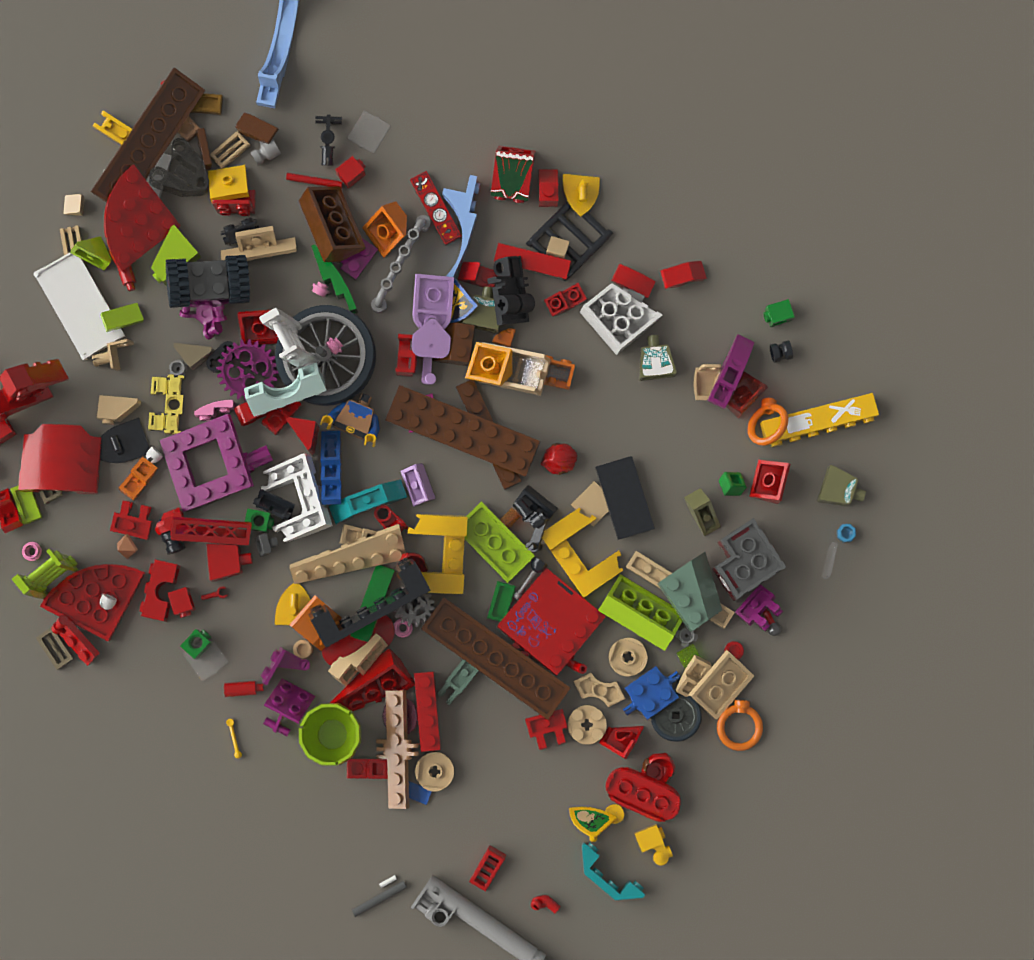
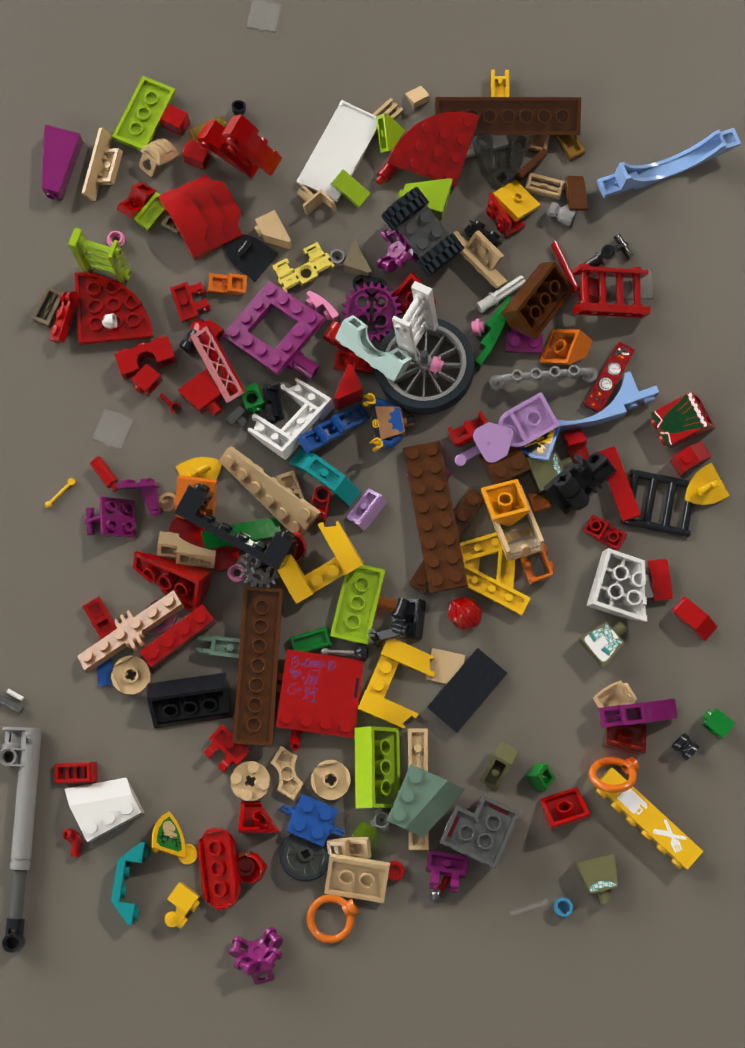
camera: 60 degrees right, 5 degrees down
(126, 546) = (165, 309): nougat slope -> none
(155, 454) = (255, 283): white hinge -> none
(188, 645) = (114, 407): green brick -> none
(303, 250) = (494, 298): none -> white axle
(330, 734) = (106, 565): lime plate -> none
(373, 173) = (602, 307): none -> red fence
(487, 734) = (189, 700): none -> black slope
(531, 860) = (103, 806): none -> white wedge
(557, 247) = (644, 497): tan slope -> none
(558, 416) = (497, 590): none -> yellow plate
(732, 804) = (258, 956): none -> magenta piece

